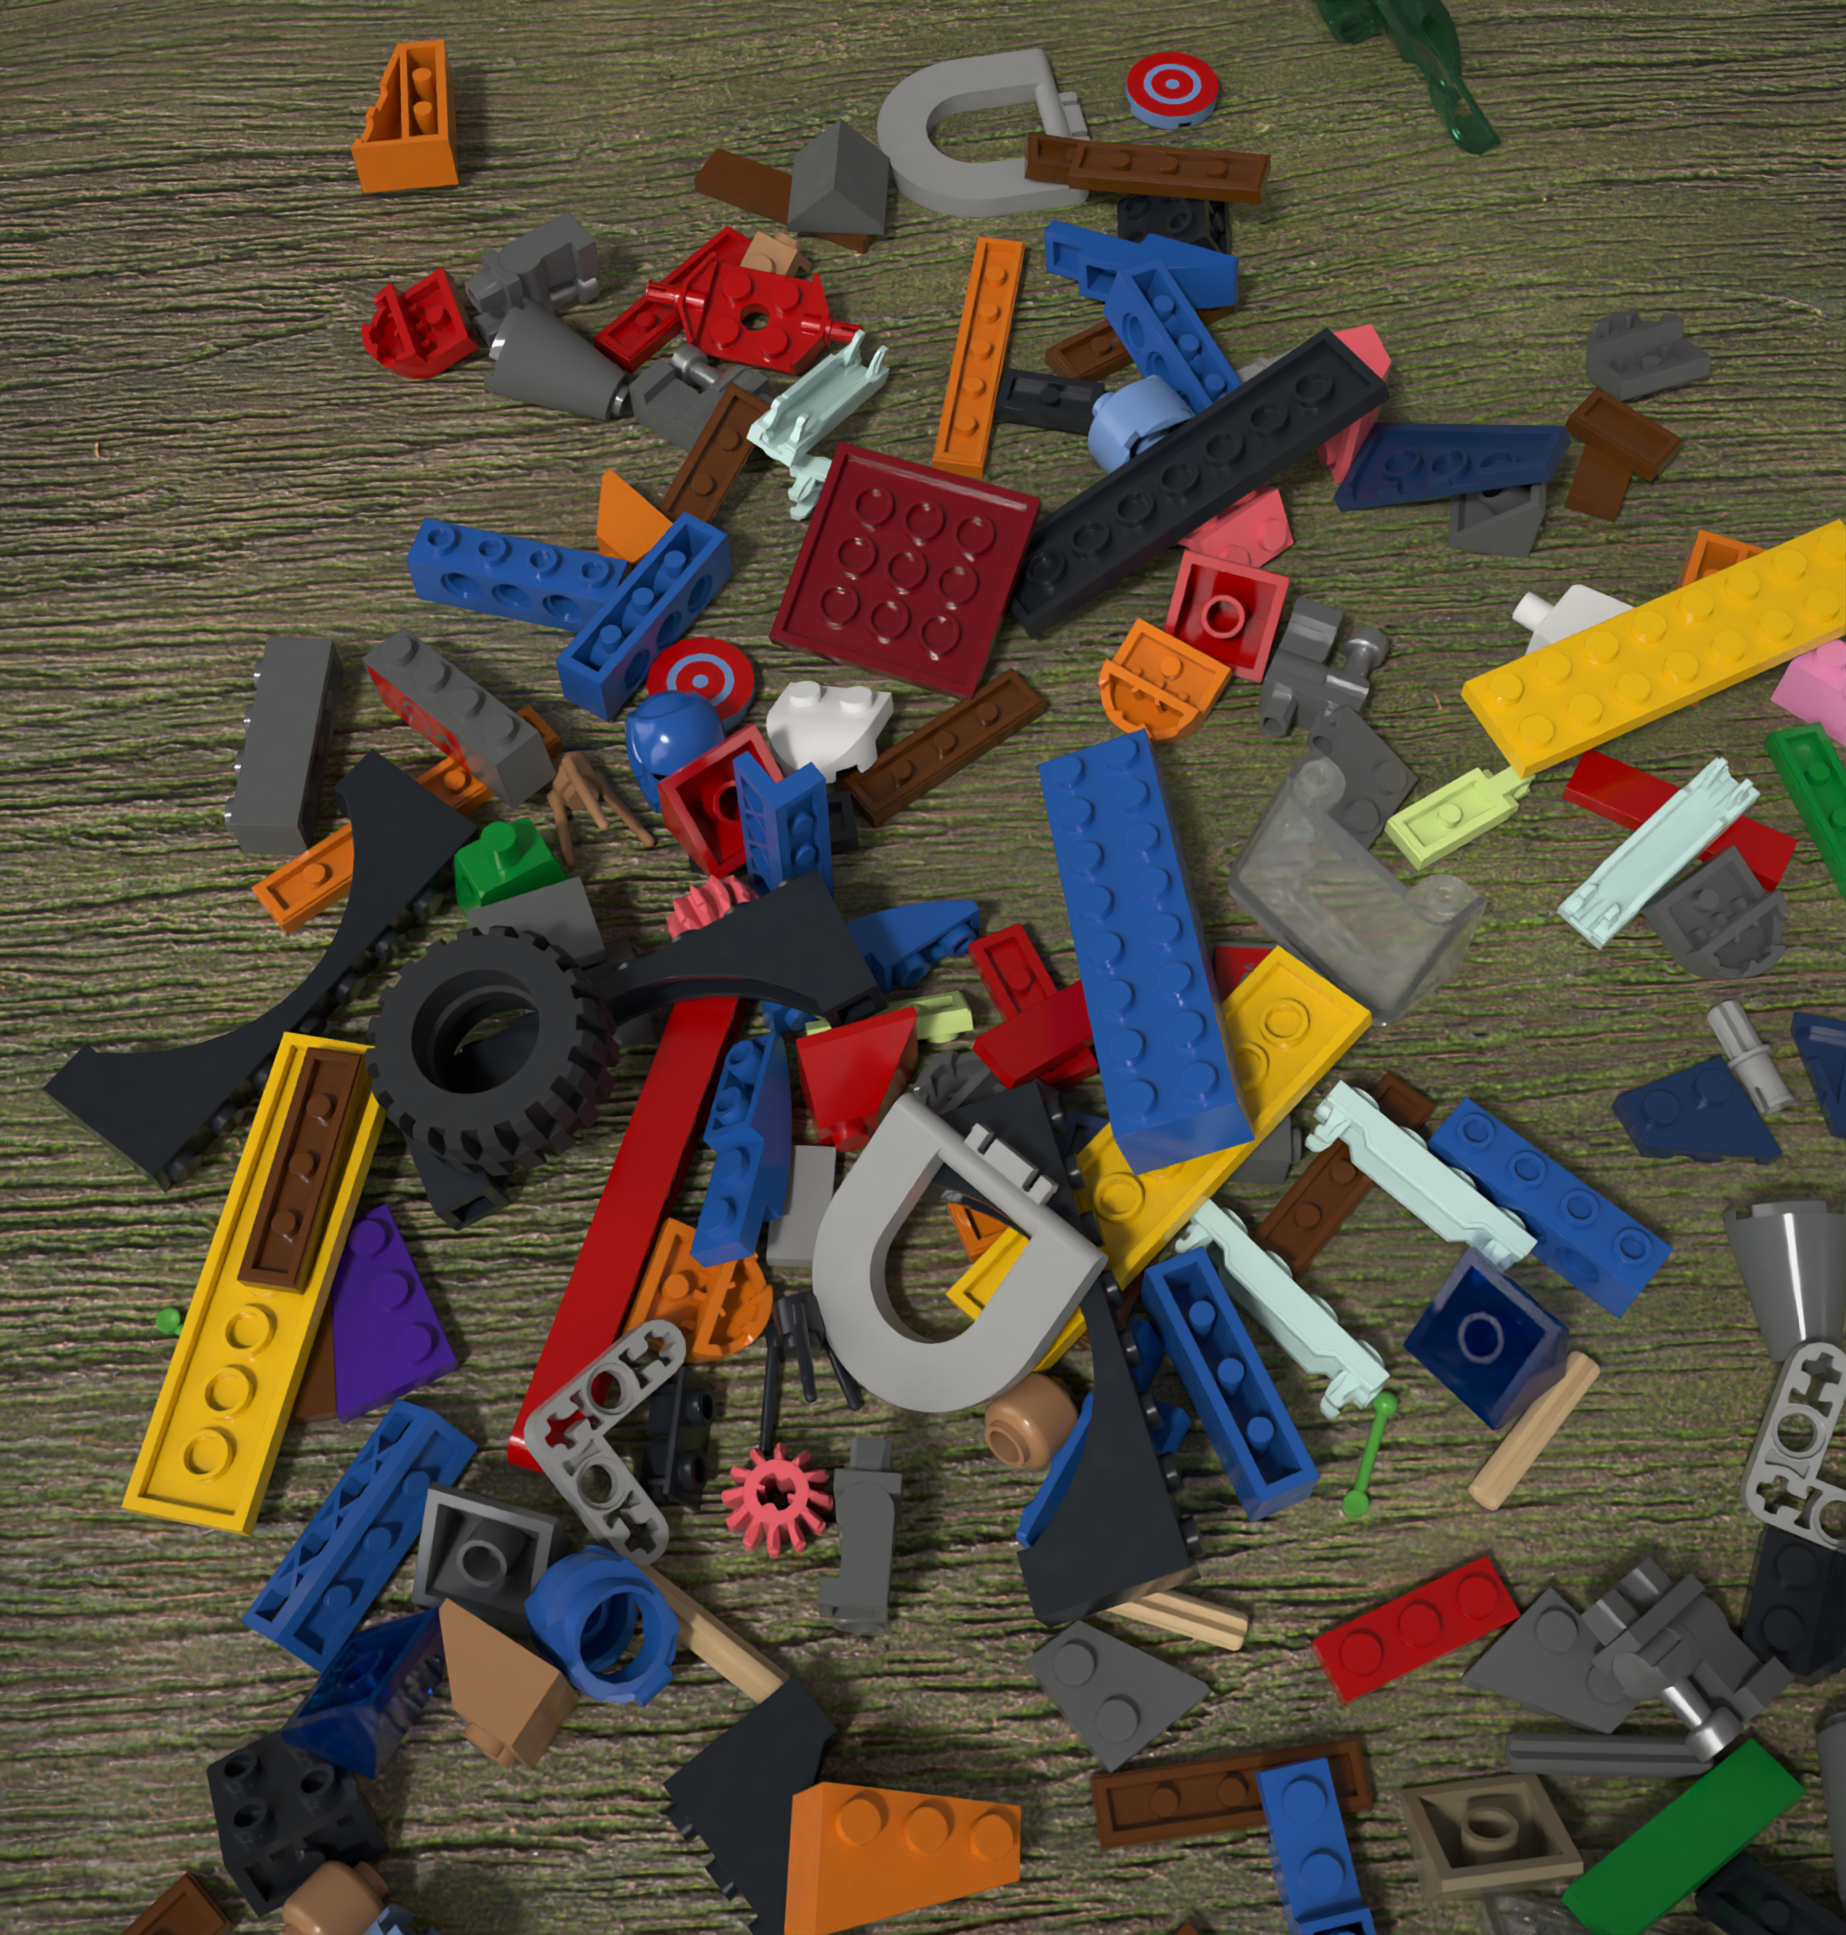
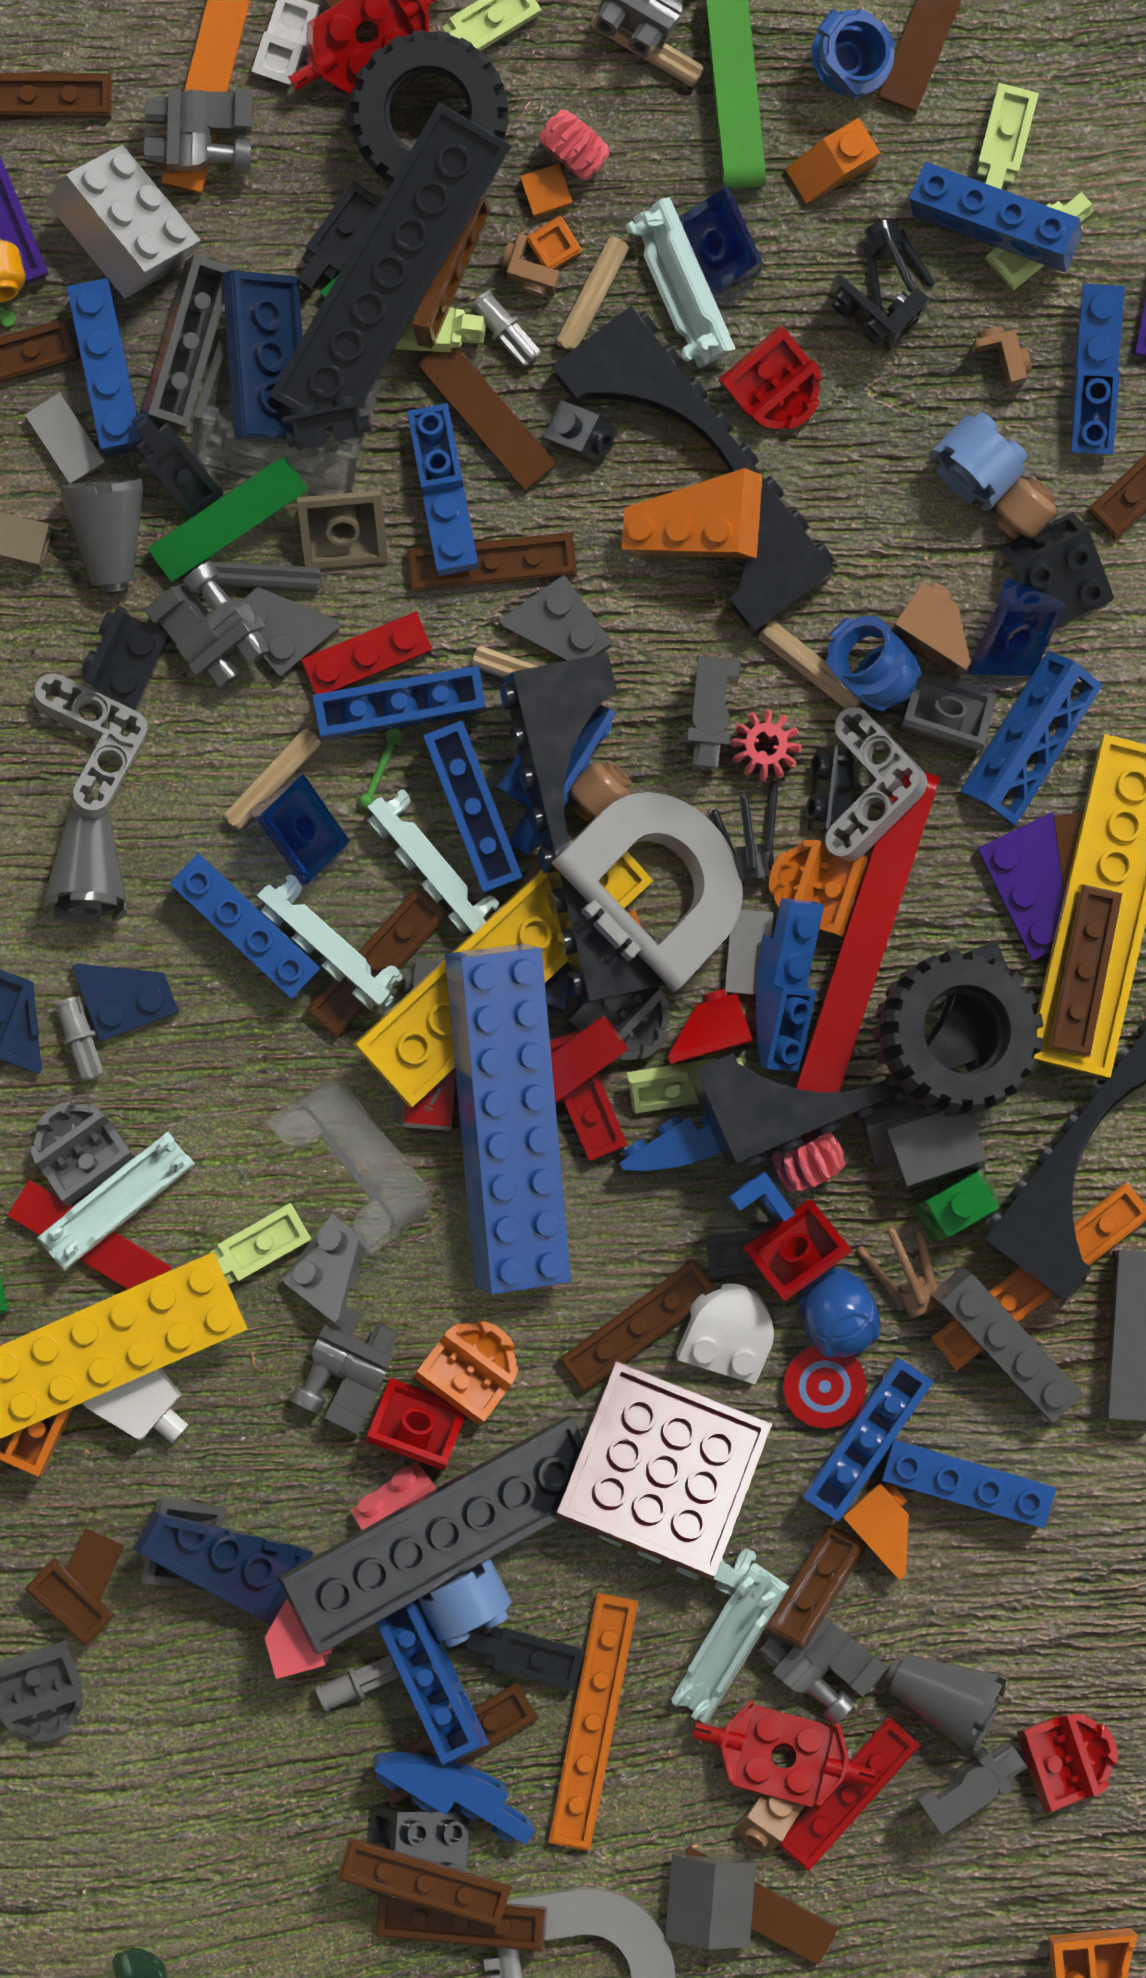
camera: 175 degrees right, 25 degrees up
(1358, 1539) = (399, 703): none -> blue brick

